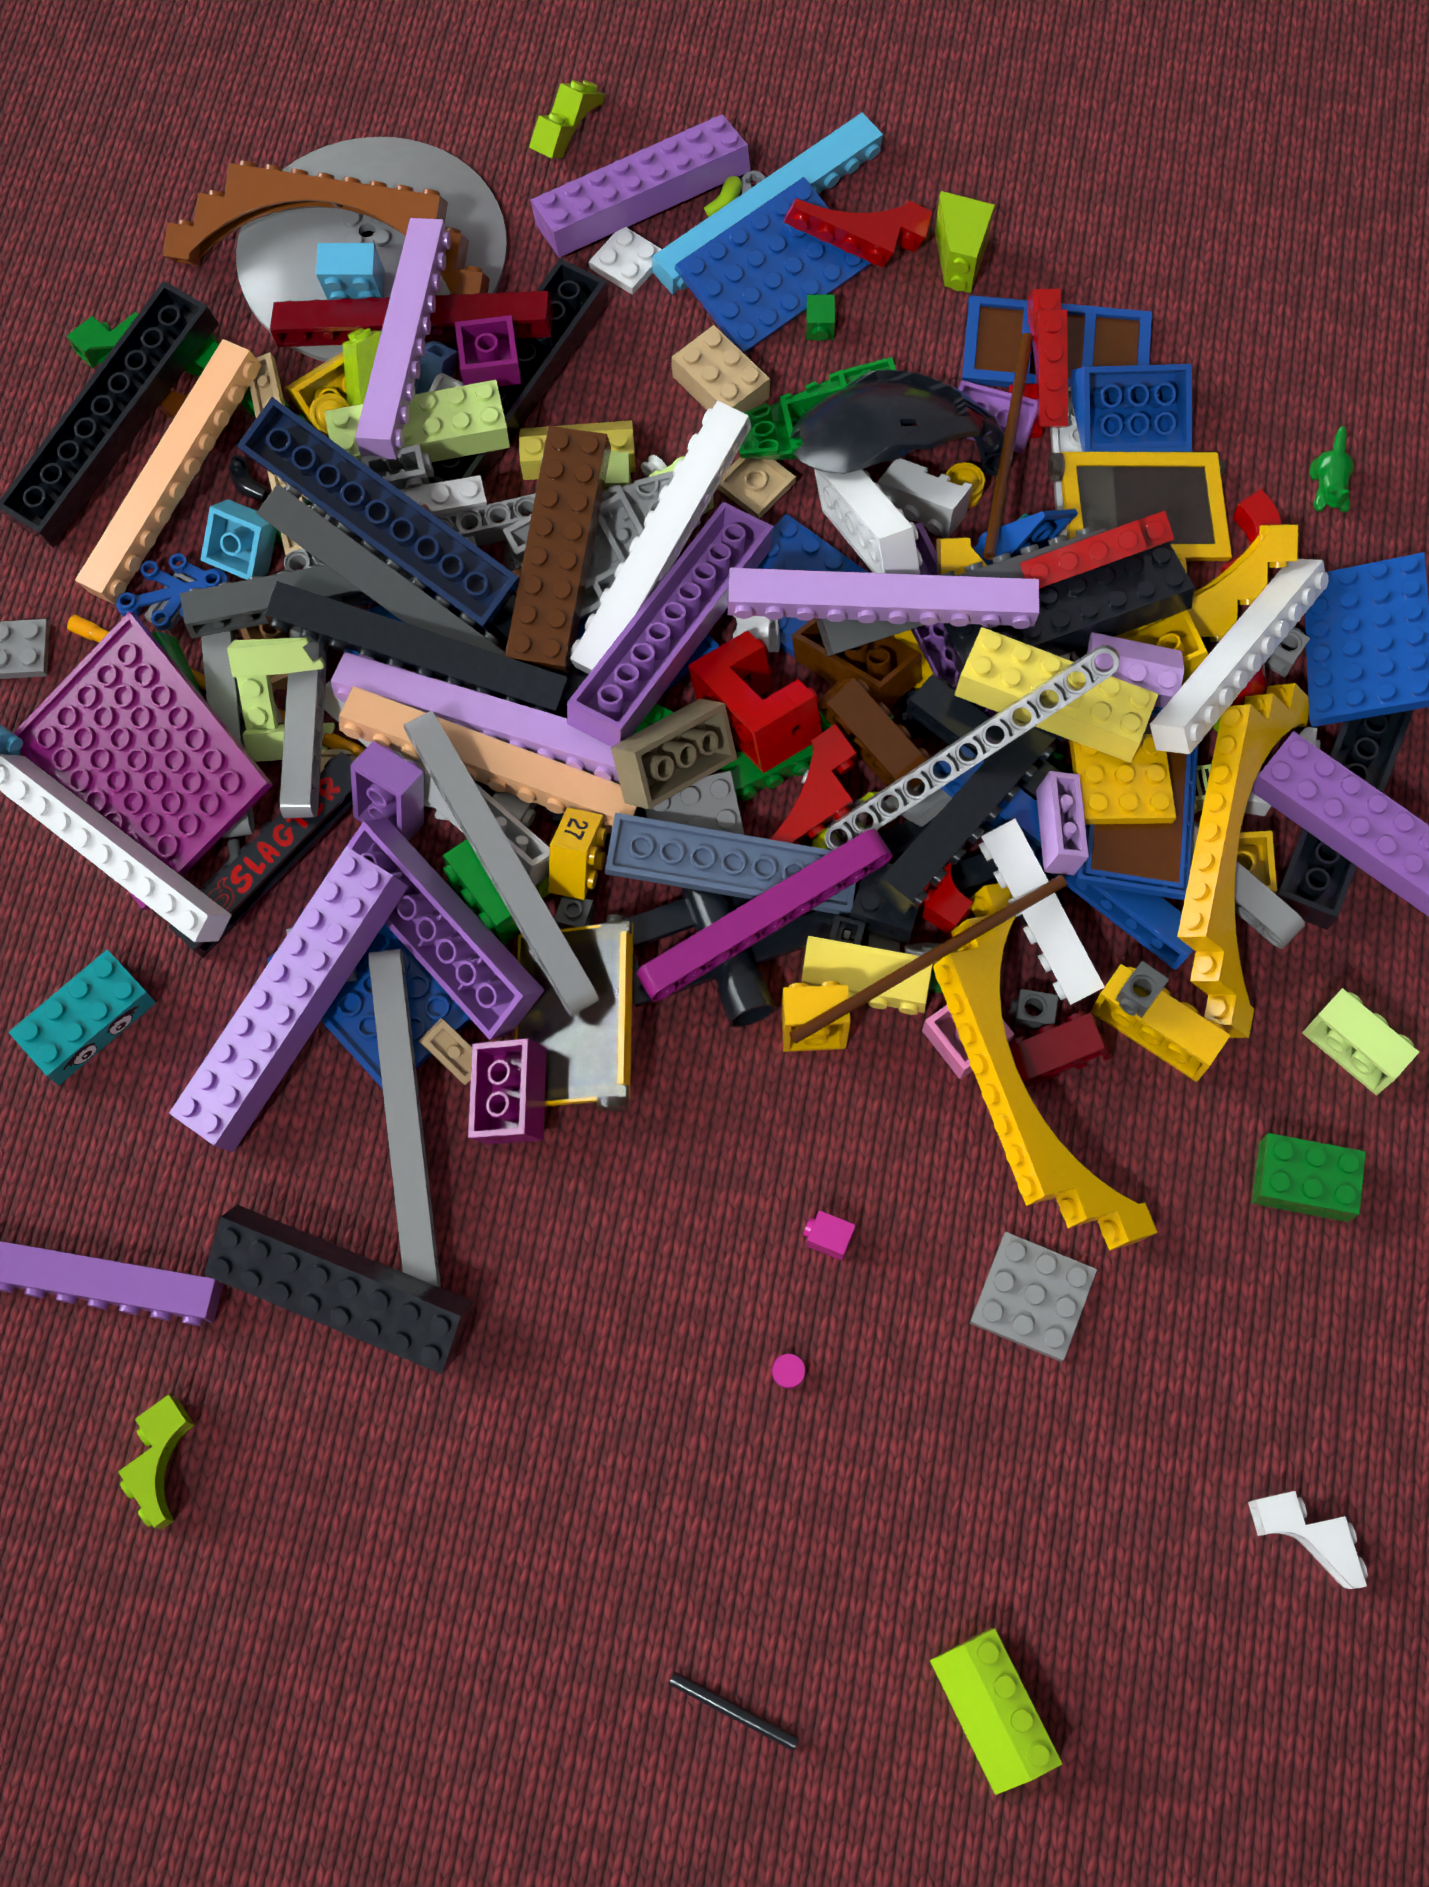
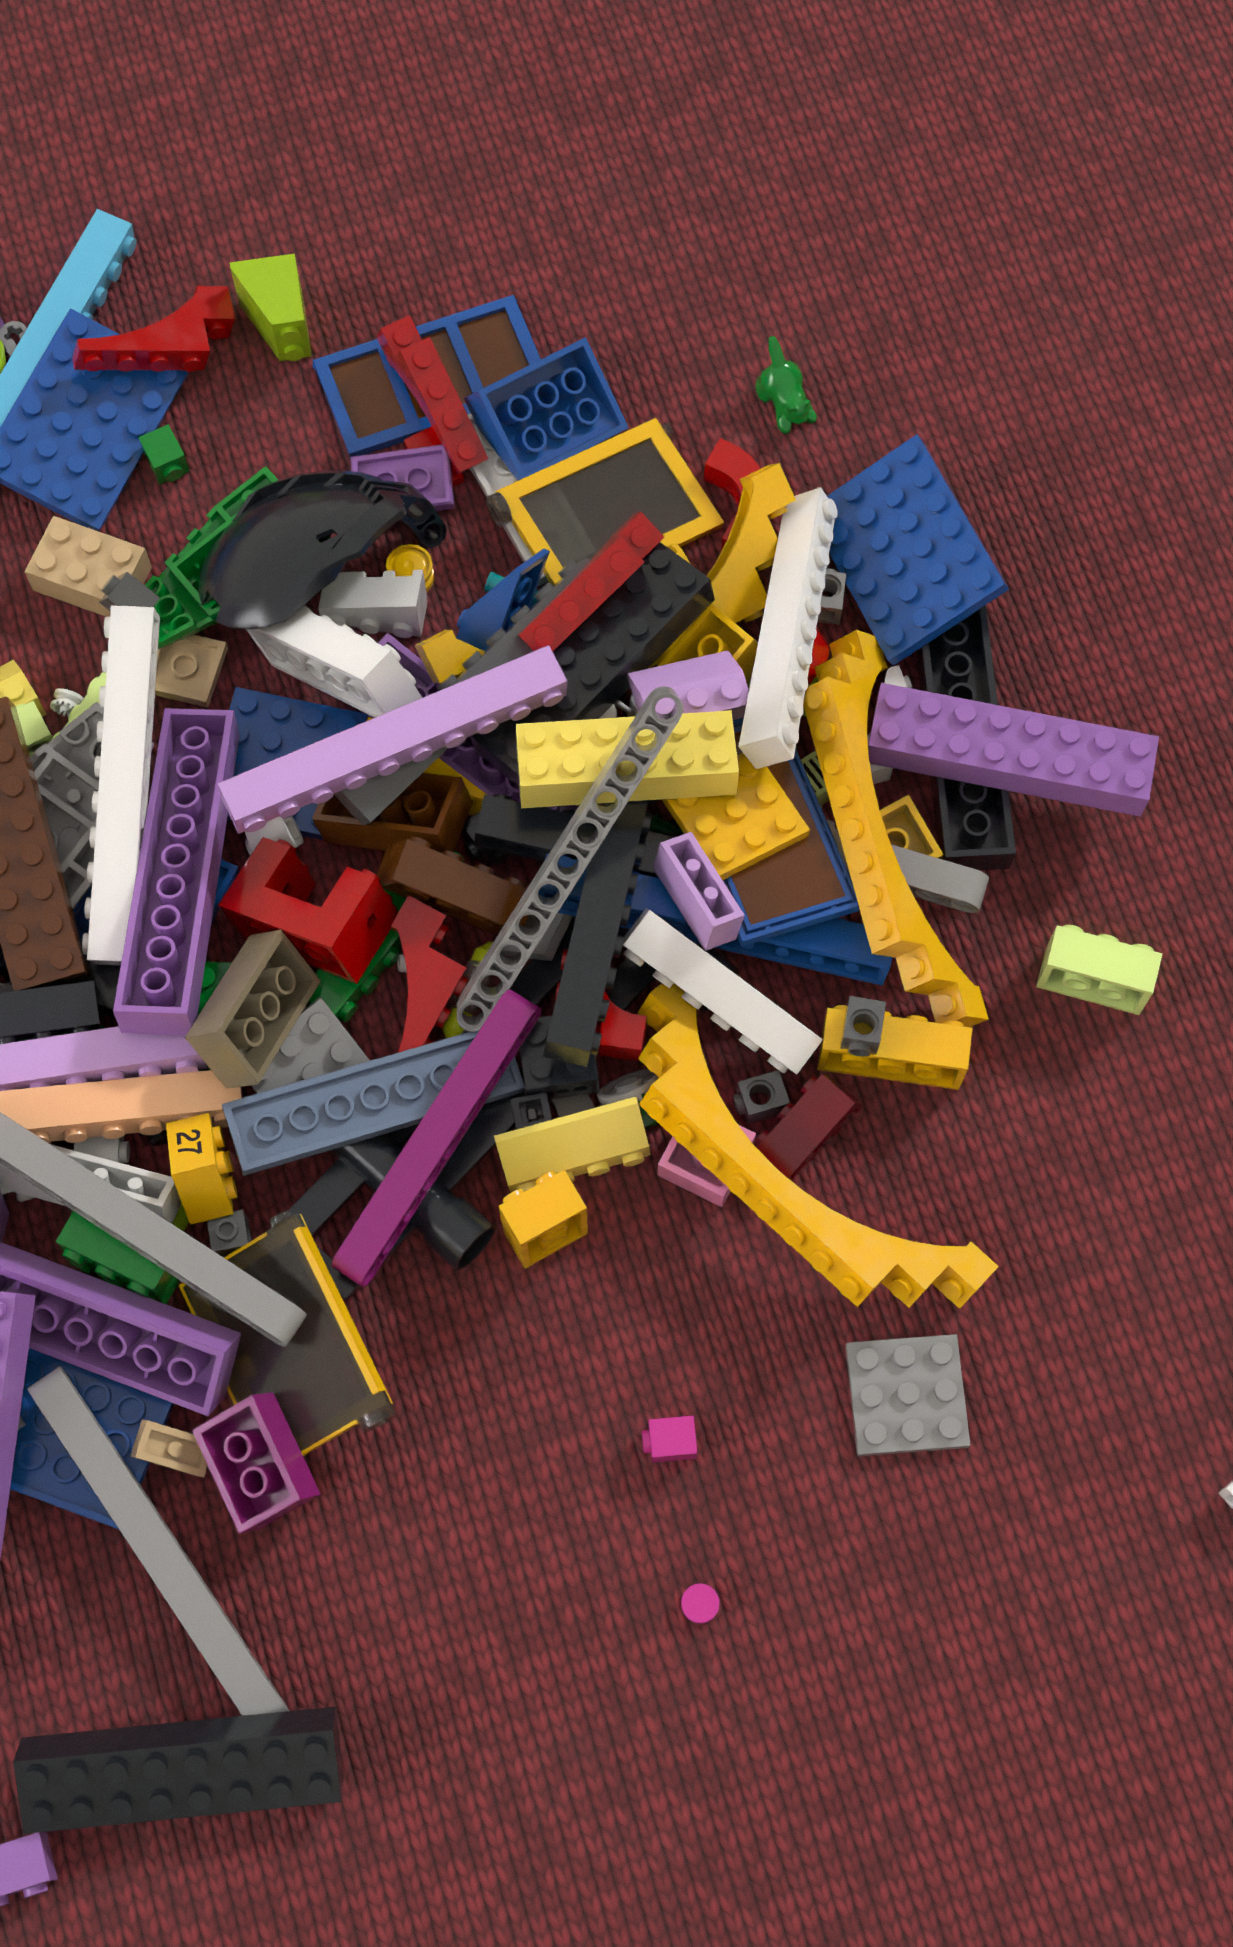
camera: 30 degrees left, 0 degrees up
(740, 401) = (127, 592): none -> dark grey brick
(927, 959) = (632, 1103): reddish brown piece -> none
(995, 1712) = (1081, 1840): lime slope -> none
(1008, 447) = (440, 511): reddish brown piece -> none
(1308, 1177) = (1116, 1133): green brick -> none

